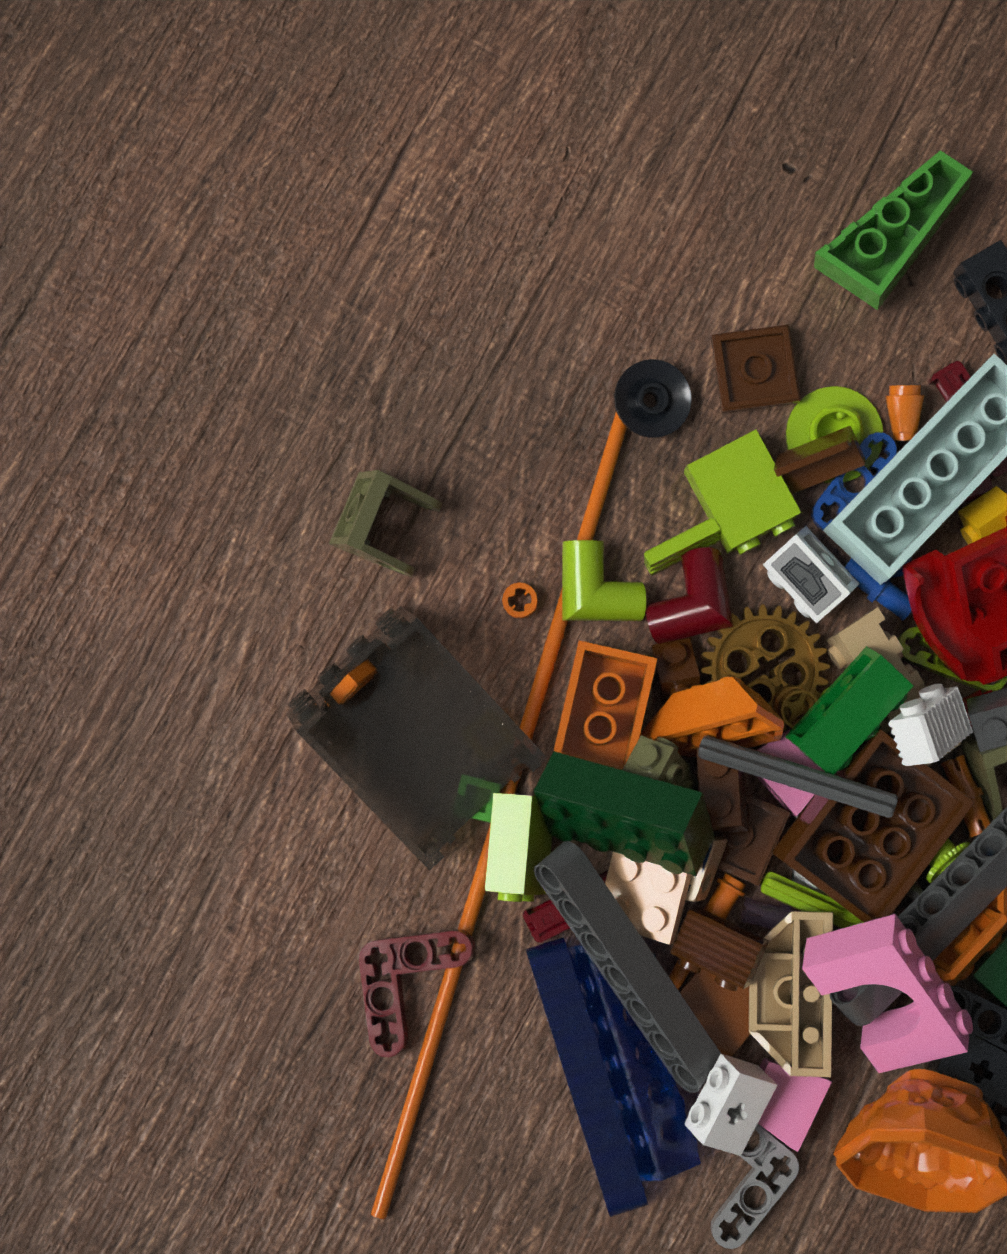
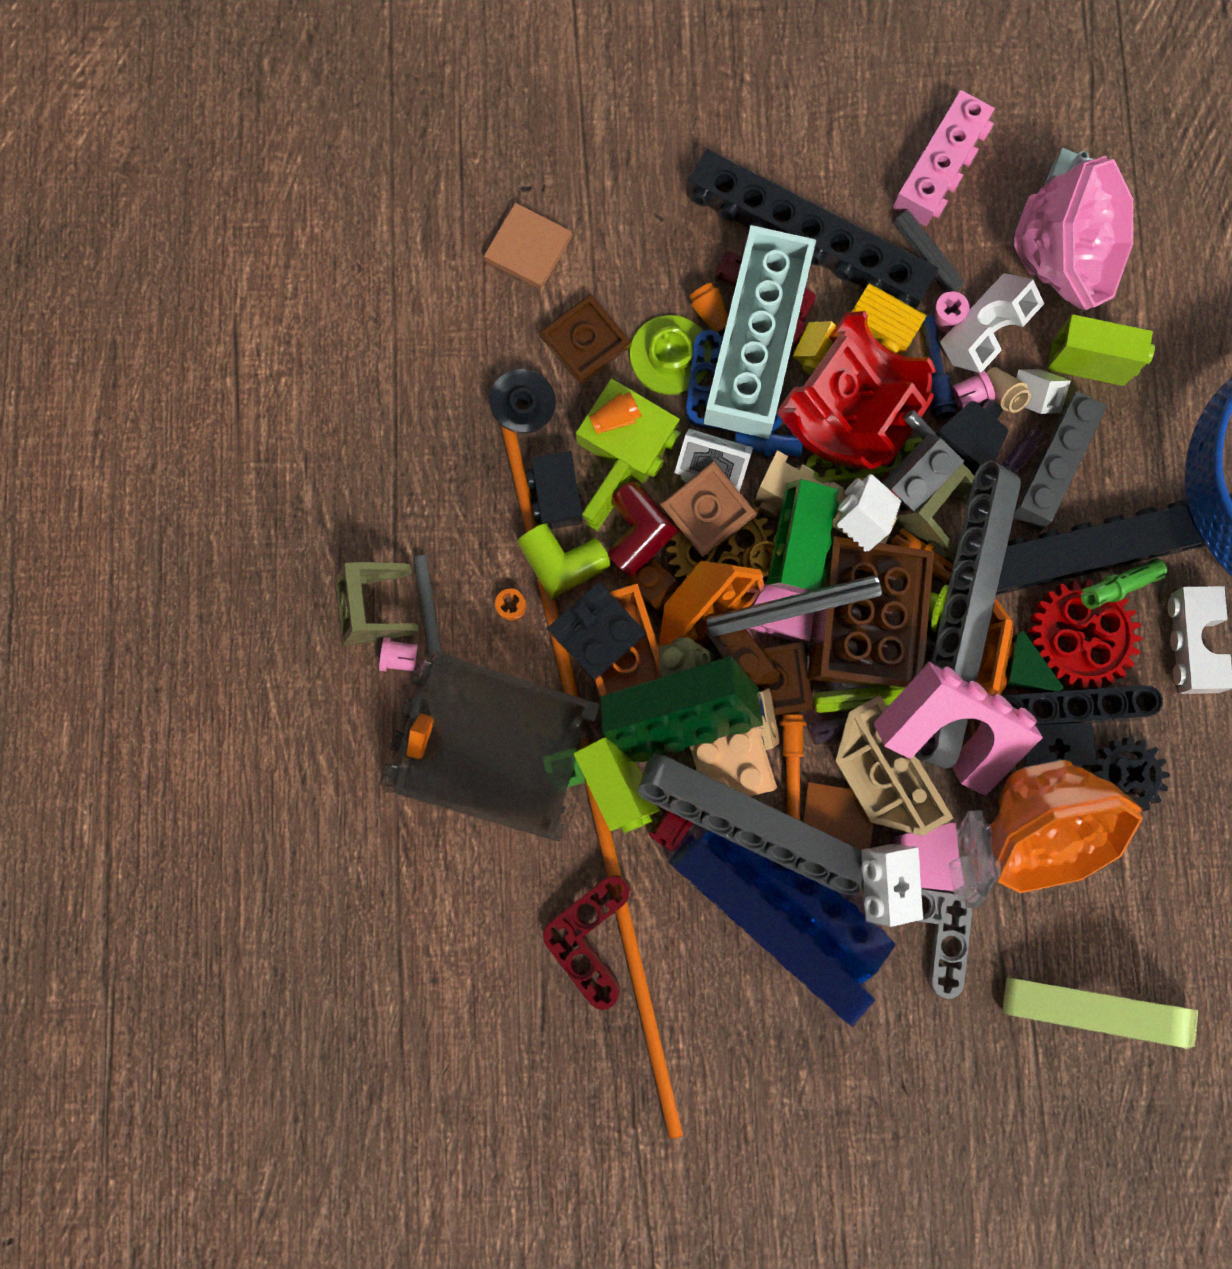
camera: 30 degrees left, 5 degrees down
(378, 588) = (397, 655): none -> bright pink bush
(436, 552) = (427, 604): none -> dark grey bar
(587, 683) = (596, 631): none -> black hinge
(632, 512) = (556, 490): none -> black piece
(718, 948) = (812, 772): reddish brown brick -> none
(738, 471) = (616, 413): none -> orange cone
(754, 234) = (528, 246): none -> nougat tile
(774, 624) = (708, 509): none -> nougat tile
(820, 460) = (671, 374): reddish brown panel -> none
(823, 1140) = (976, 867): none -> clear plate
(886, 241) = (625, 195): bright green wedge -> none

